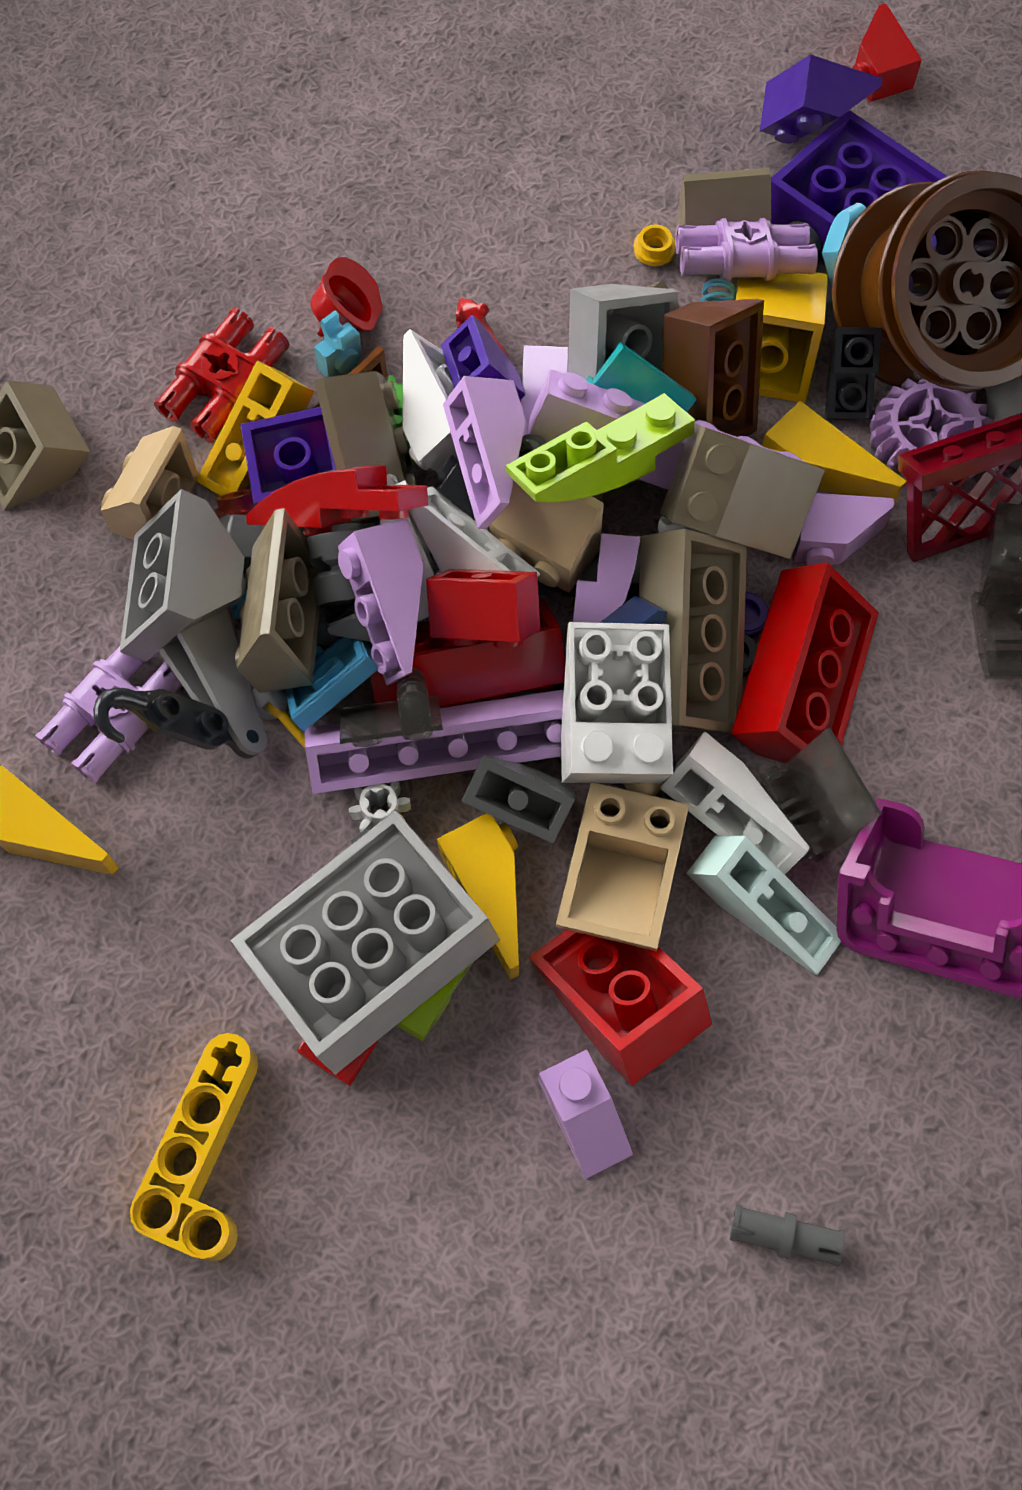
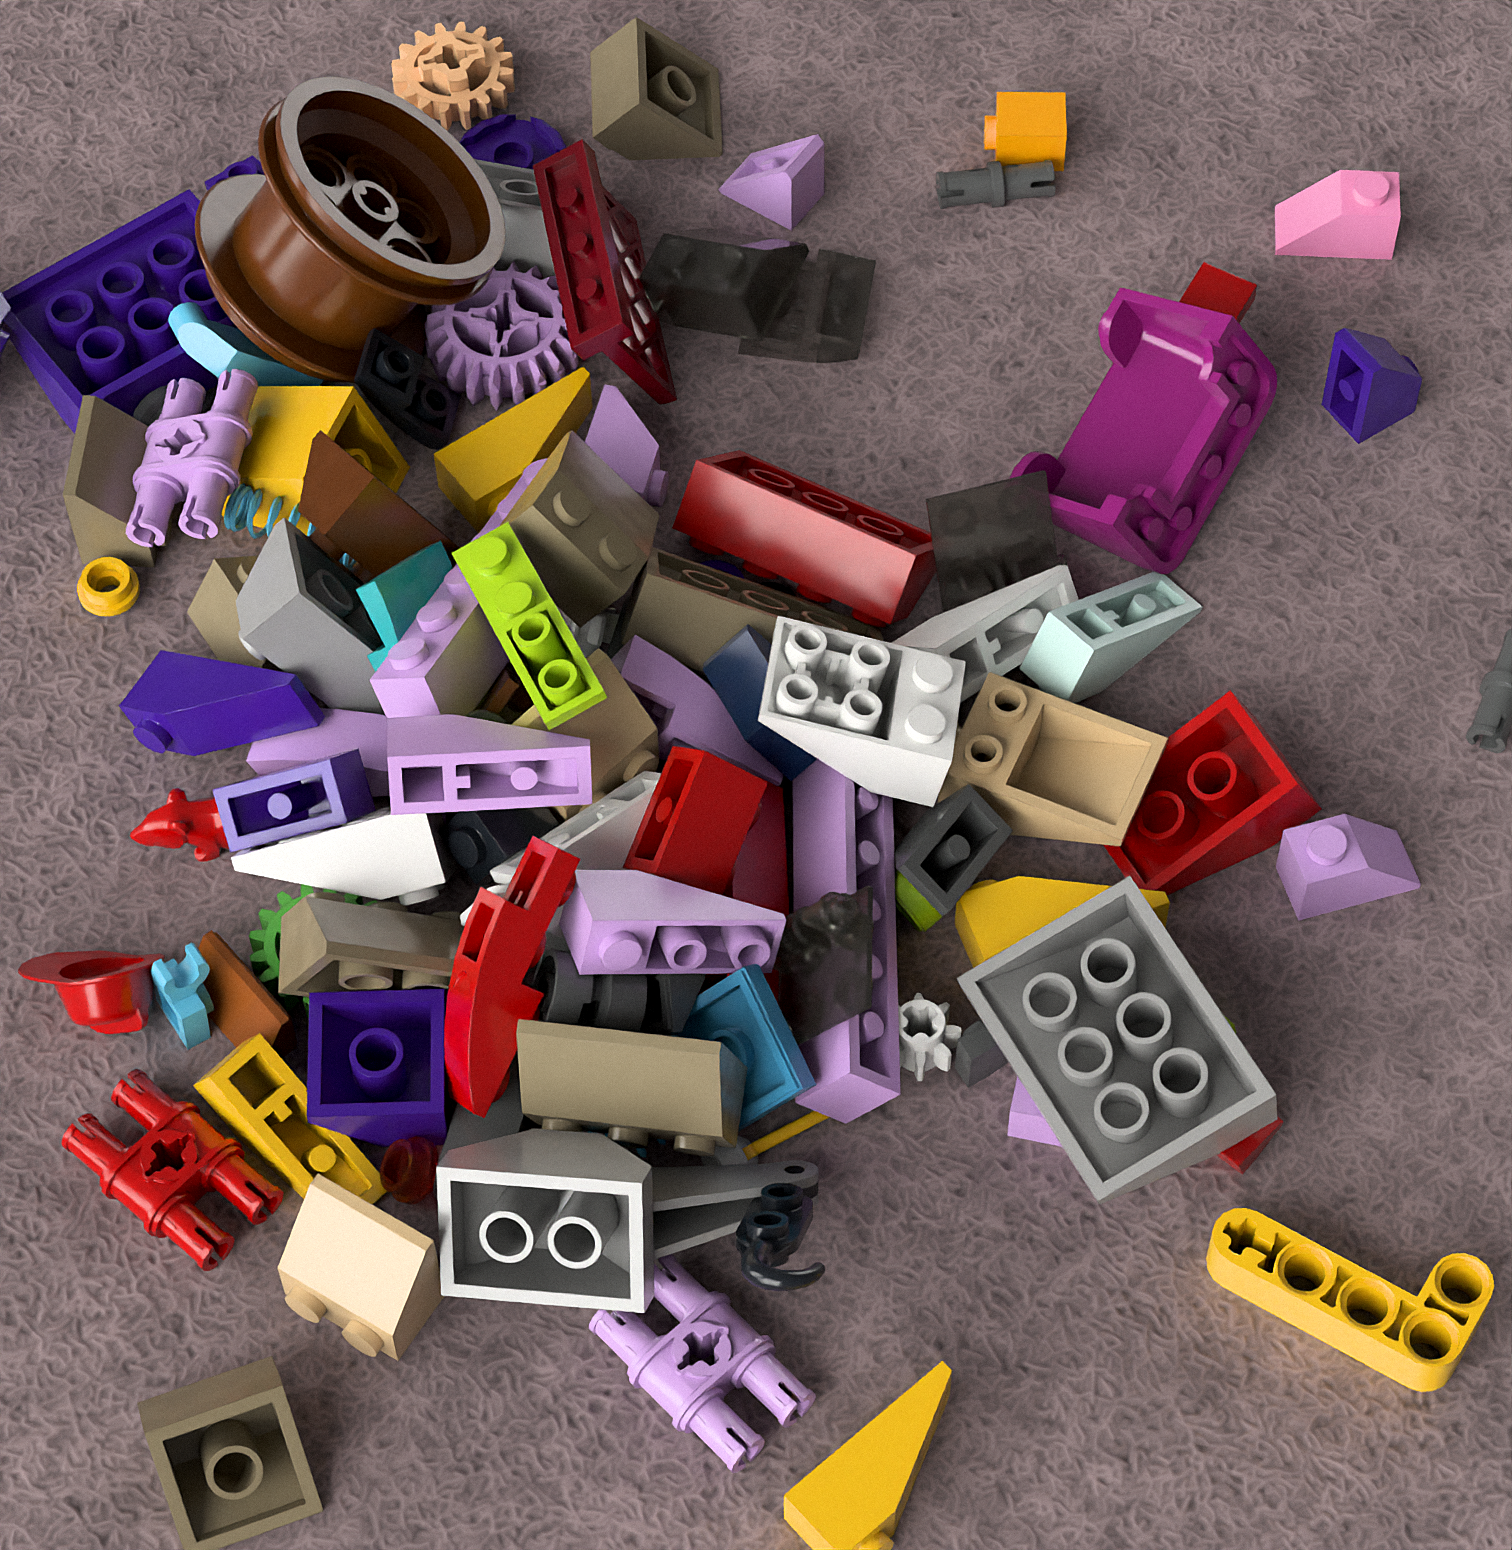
camera: 80 degrees left, 10 degrees down
(551, 310) = (213, 704): none -> dark purple slope

